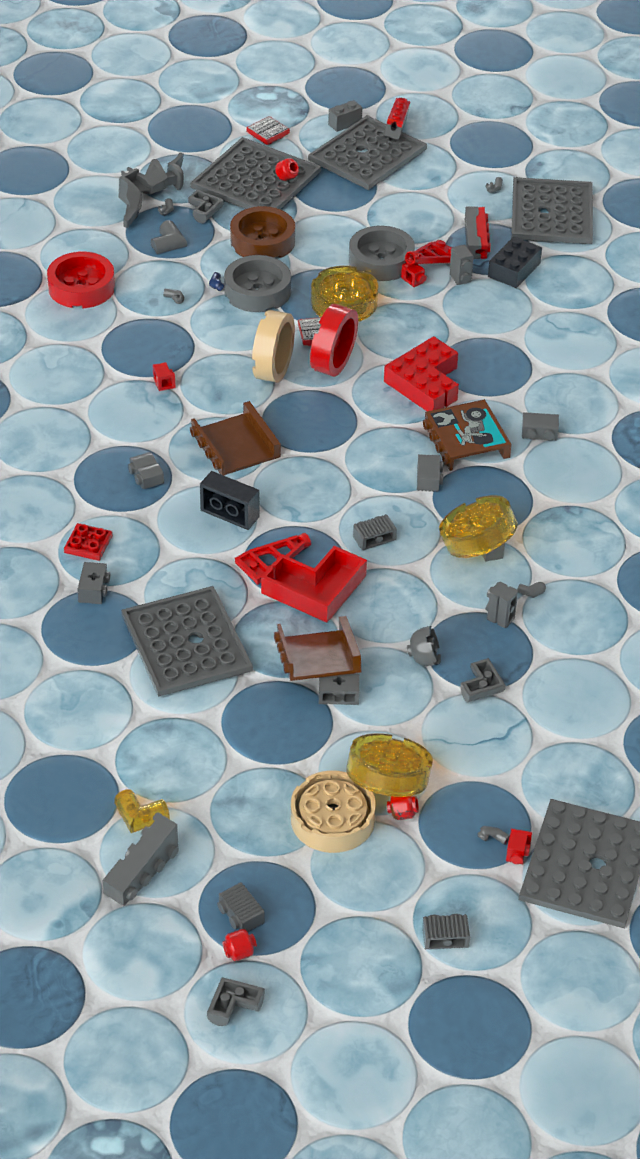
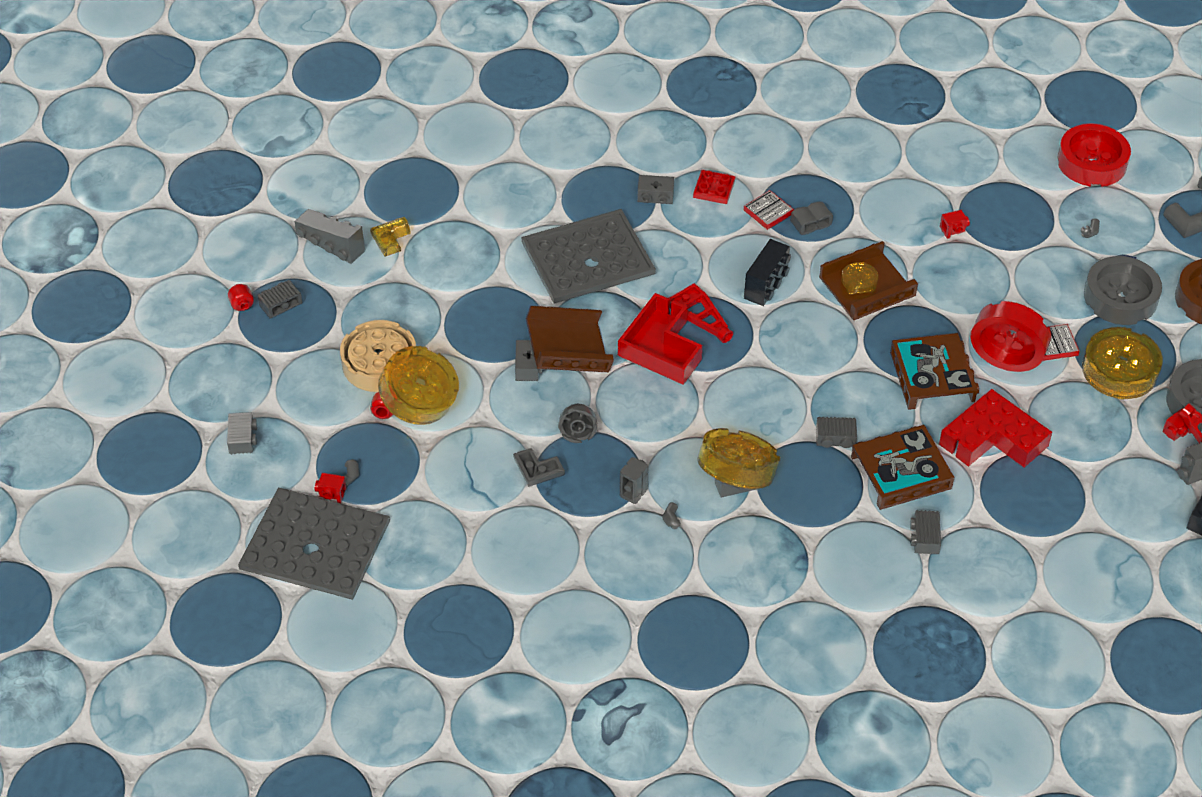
camera: 90 degrees right, 5 degrees up
(130, 500) = (768, 209): none -> tile
(232, 994) = (191, 295): dark grey brick -> none
(233, 442) = (859, 278): none -> clear yellow tile
(273, 346) = (971, 288): tan brick -> none
(353, 406) = (933, 368): none -> panel
(374, 532) = (741, 387): dark grey brick -> none

